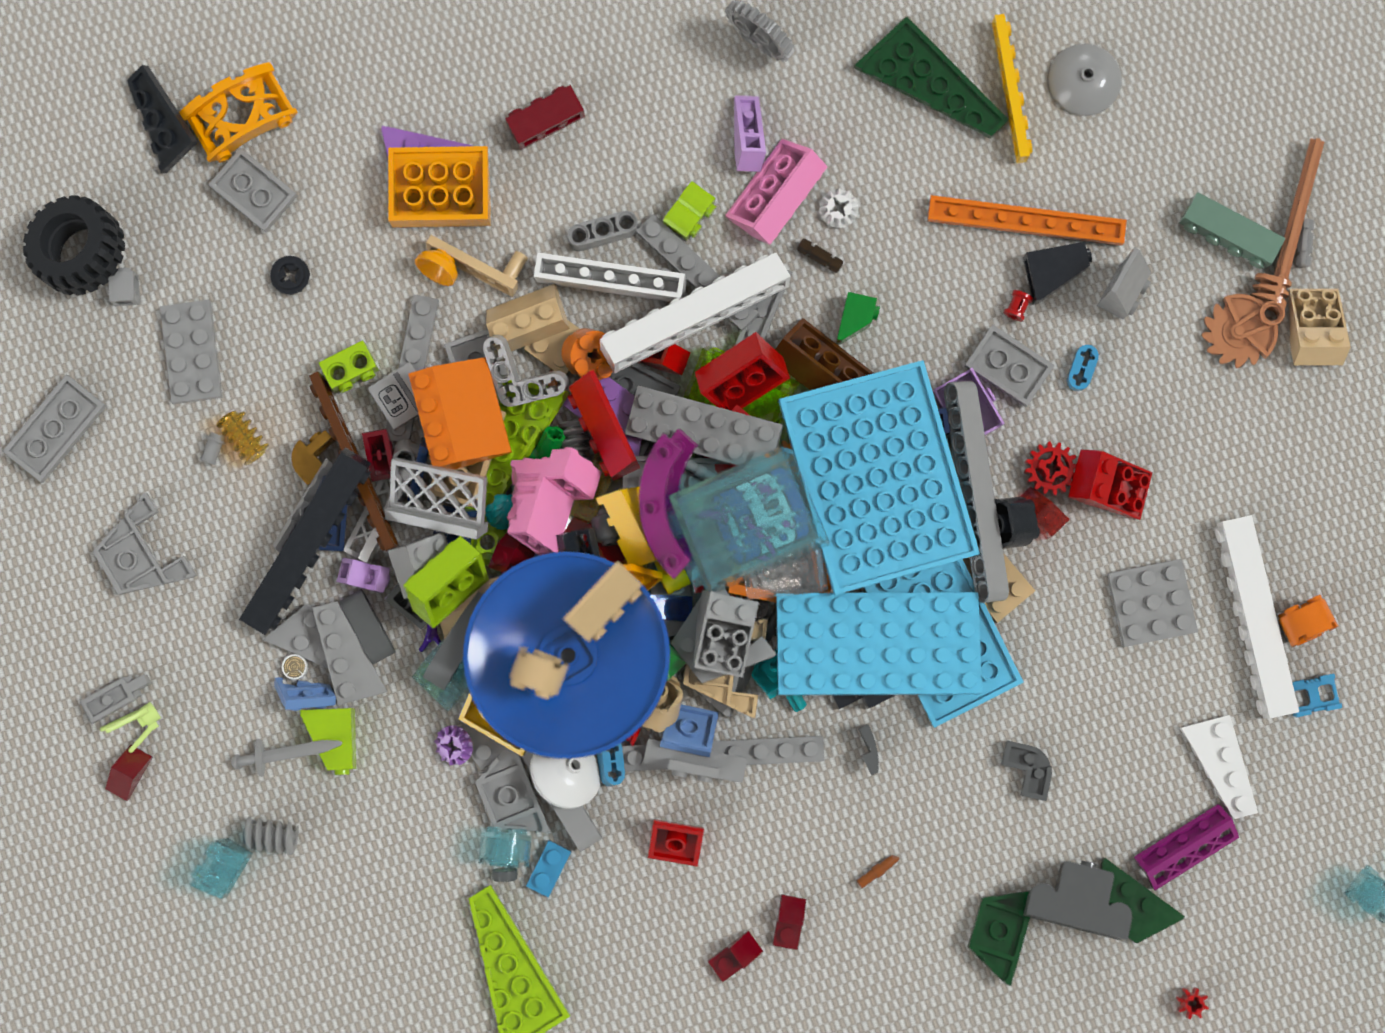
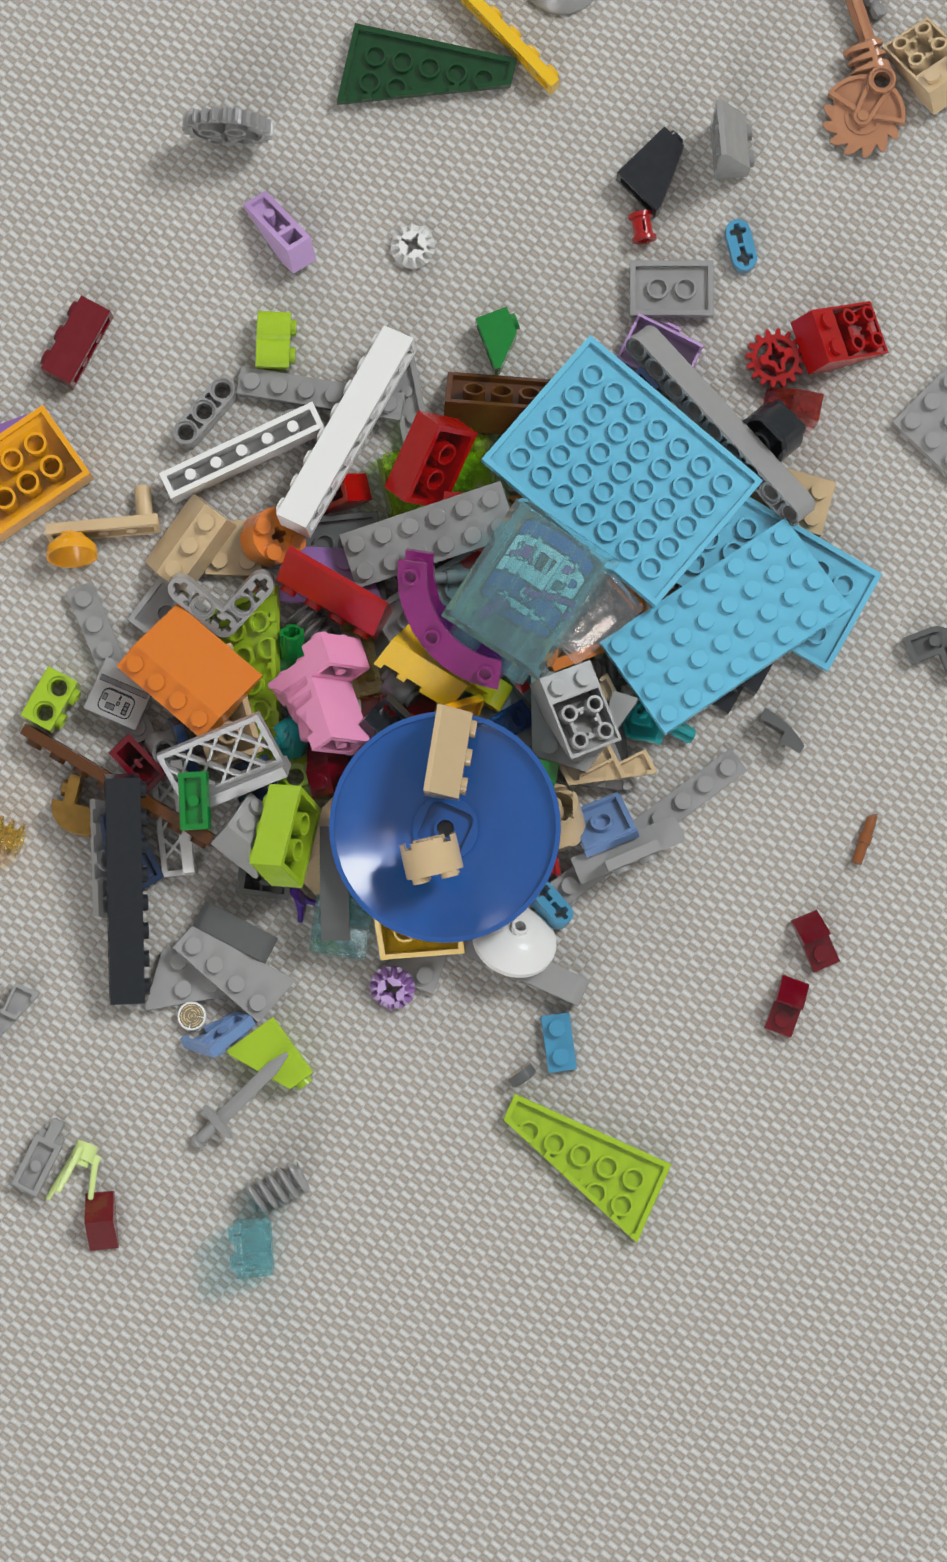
camera: 35 degrees left, 0 degrees up
(363, 575) = (200, 885): lavender brick -> none
(397, 511) = (194, 801): none -> green plate
(505, 848) = (505, 1049): clear light blue brick -> none
(510, 795) = (477, 998): light grey wing -> none
(676, 842) = (661, 938): red slope -> none
(776, 191) = (343, 268): bright pink slope -> none
(820, 255) = (425, 302): dark brown axle -> none
(1026, 220) = (596, 142): orange plate -> none
(1231, 231) = (793, 27): sand green brick -> none

